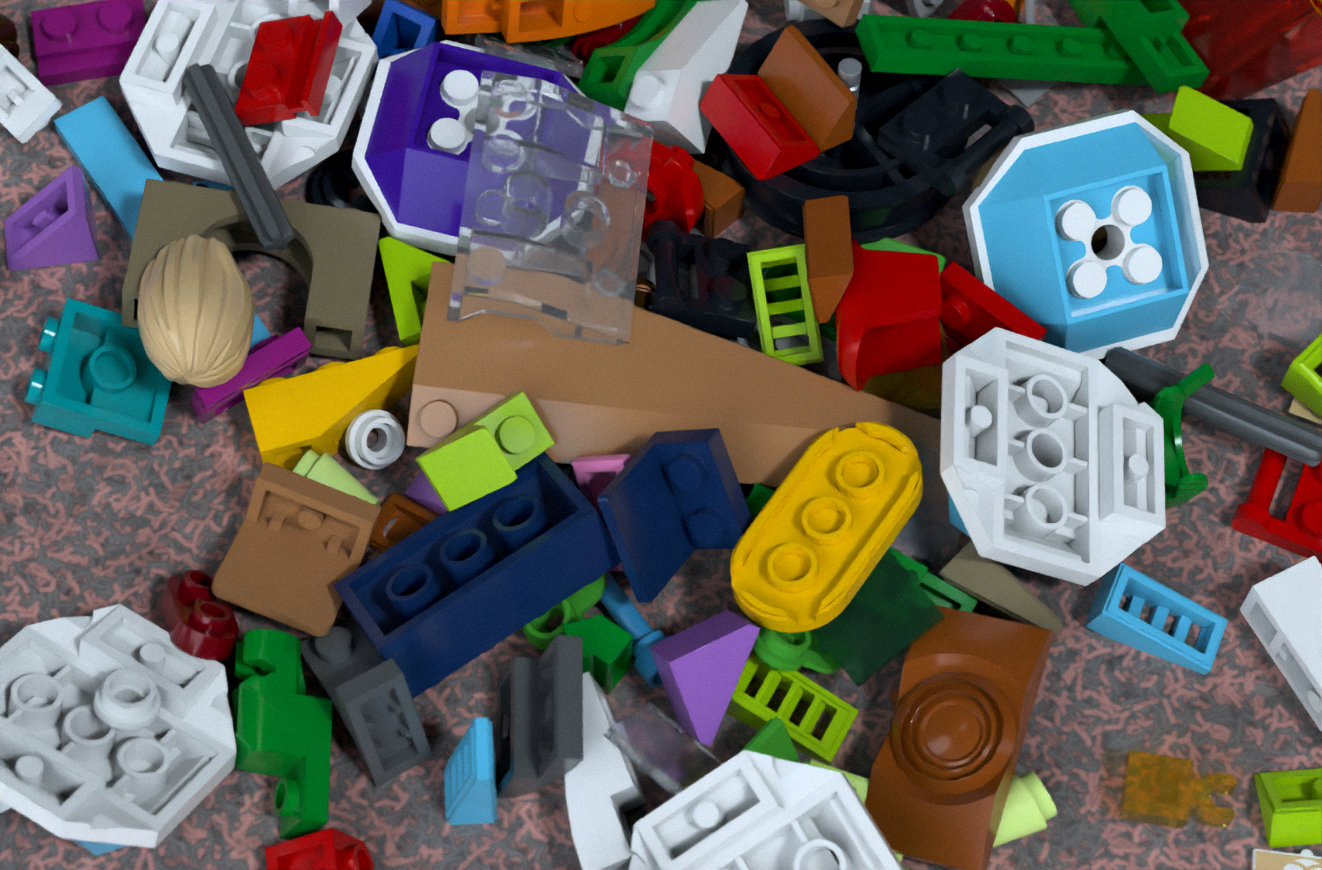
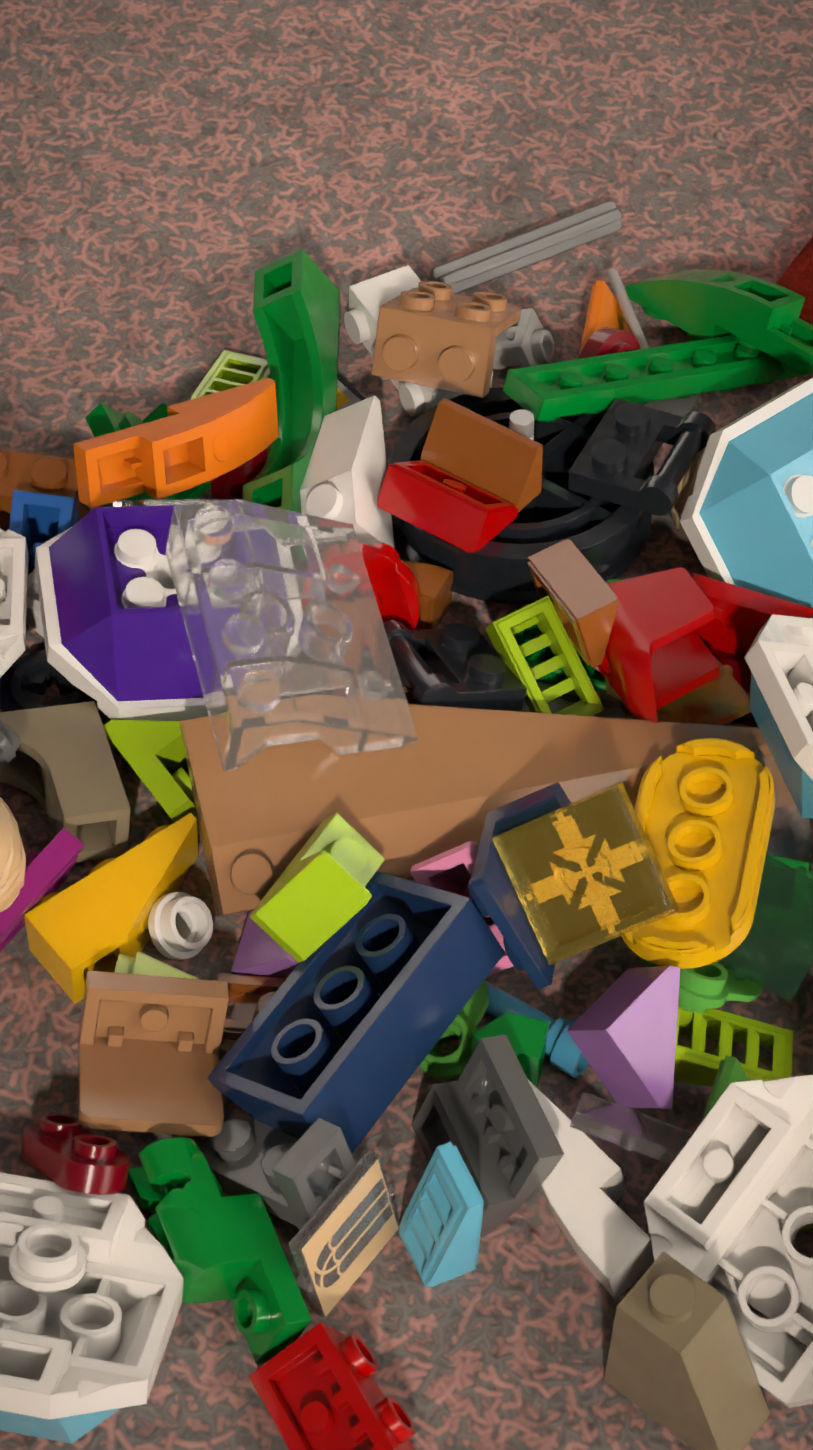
camera: 20 degrees left, 10 degrees down
(387, 759) = (345, 1234): none -> piece
(709, 518) = (585, 873): none -> clear yellow tile

